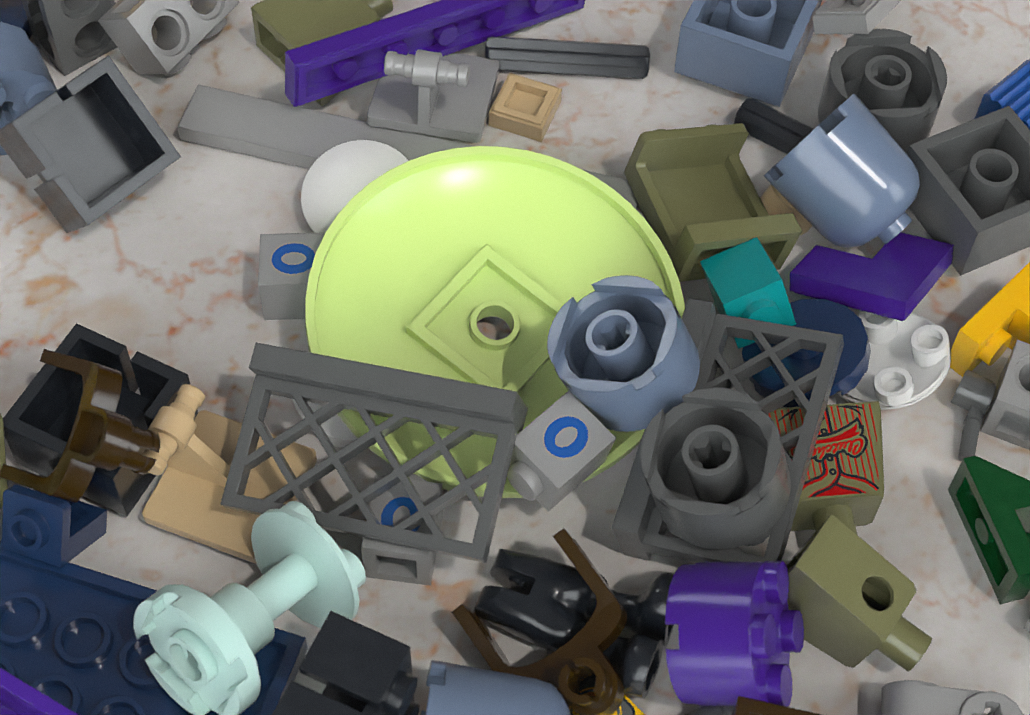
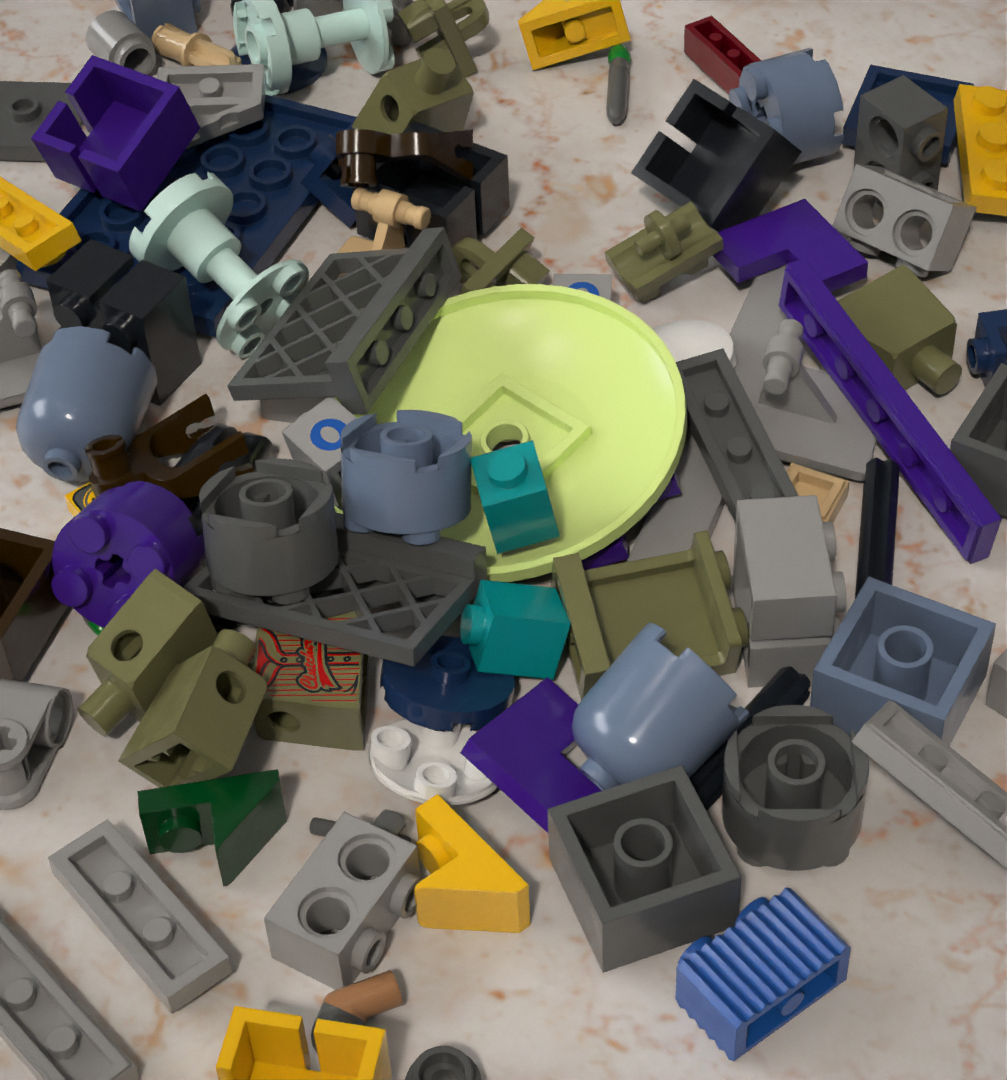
camera: 100 degrees right, 10 degrees down
(190, 100) = (788, 236): none -> dark purple tile
(211, 348) = (506, 267): none -> olive hips
(214, 198) = (664, 251): none -> olive hips
(534, 123) = (730, 432): none -> dark grey plate
(634, 252) = (514, 497): none -> teal brick
(694, 70) = (785, 584): none -> light grey piece
(931, 526) = (199, 716): none -> olive torso

